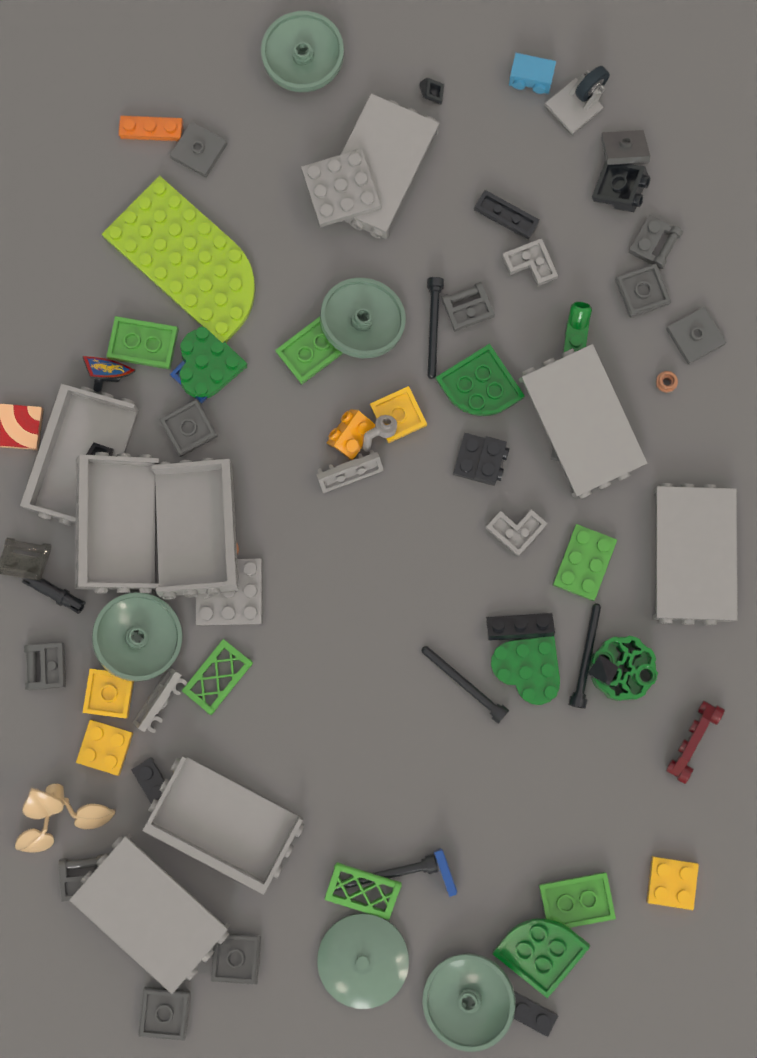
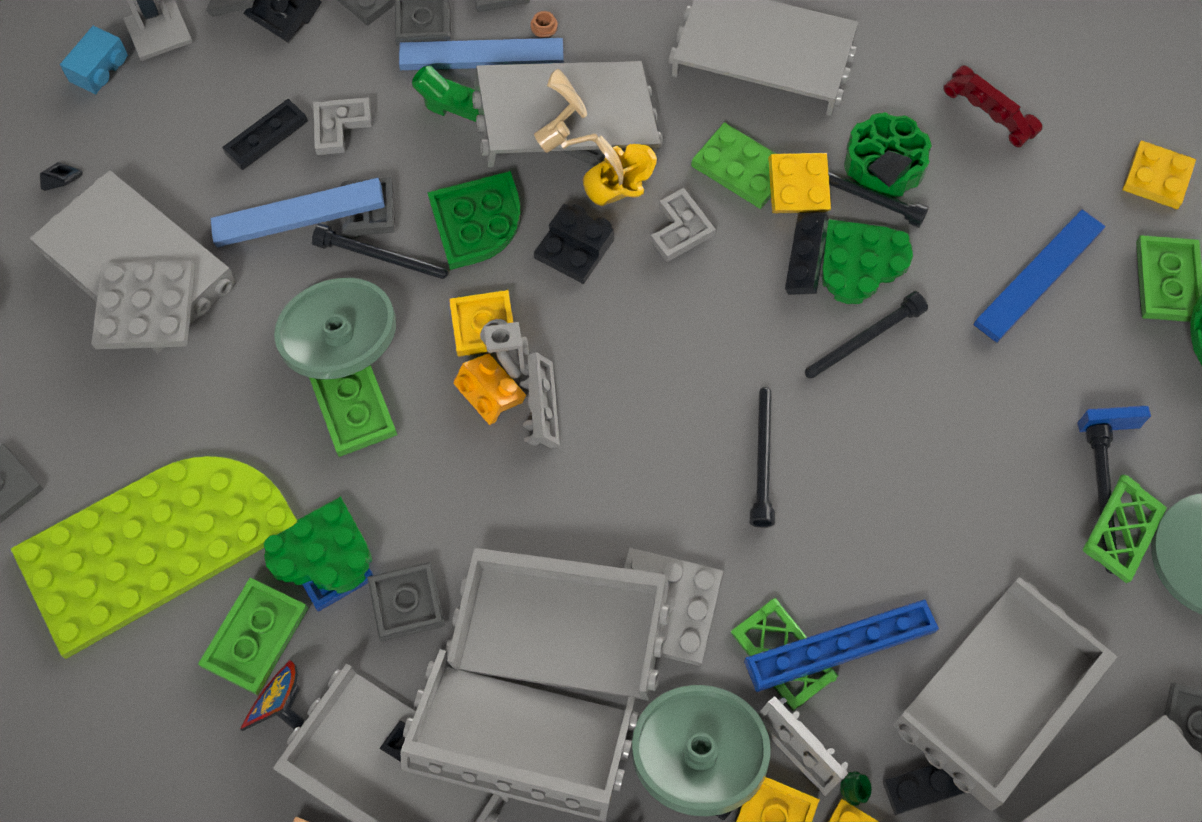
camera: 80 degrees left, 15 degrees down
(139, 740) = (855, 788): none -> dark green plate
(230, 712) = (840, 645): none -> blue tile
(309, 640) = (762, 513): none -> black piece
(379, 442) = (514, 342): none -> light grey bracket
(447, 261) = (297, 212): none -> medium blue tile
(540, 474) = (602, 180): none -> yellow head
(550, 419) = (556, 131): none -> tan plant
(554, 803) = (1039, 276): none -> blue tile
(576, 607) = (799, 183): none -> yellow plate
(626, 344) = (479, 52): none -> medium blue tile

